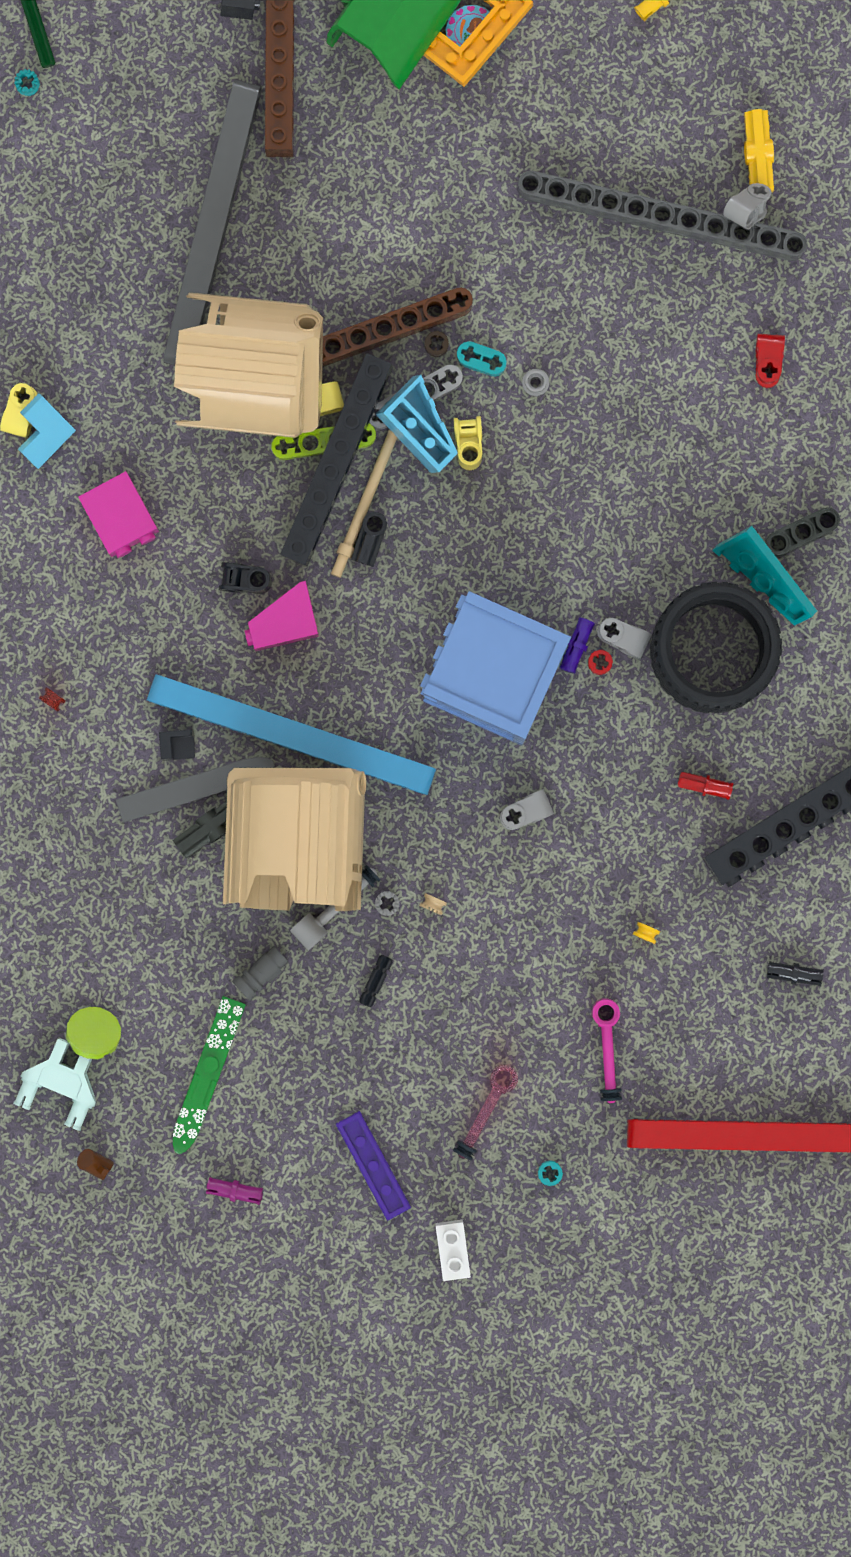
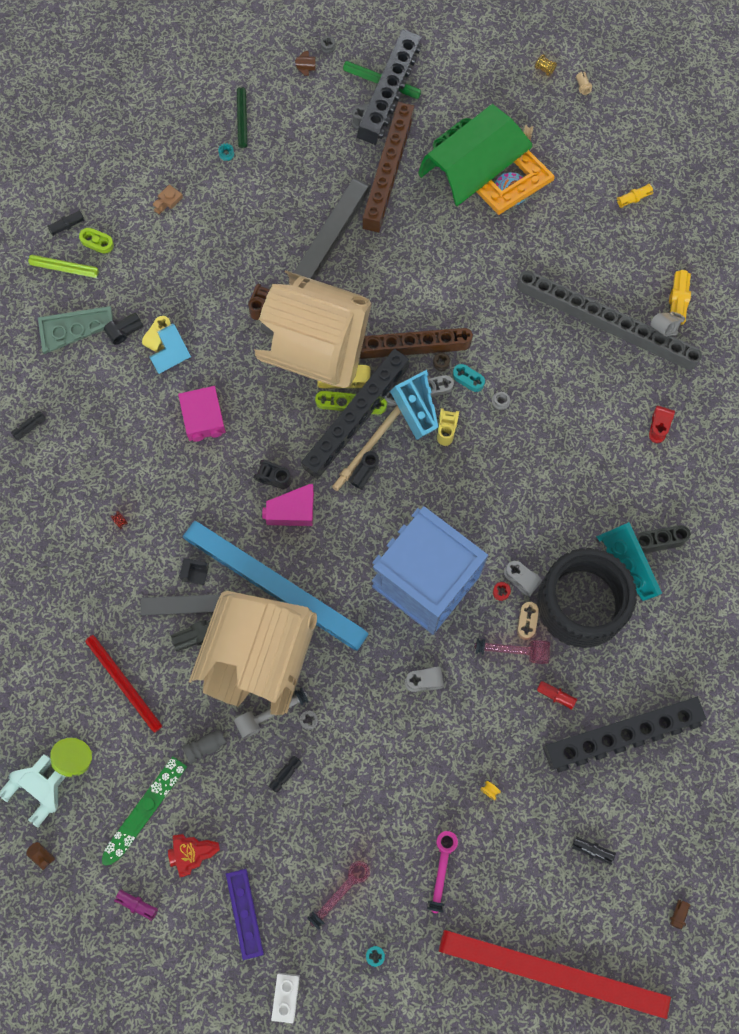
camera: 10 degrees right, 15 degrees down
(129, 919) = (123, 683): none -> red axle
(151, 313) = (257, 301): none -> reddish brown piece
(283, 1111) = (190, 853): none -> red rock
(434, 903) = (341, 728): tan bush -> none
(577, 645) = (488, 575): dark purple pin -> none
(637, 694) = (523, 620): none -> tan beam
(667, 735) = (538, 651): none -> clear pink piece

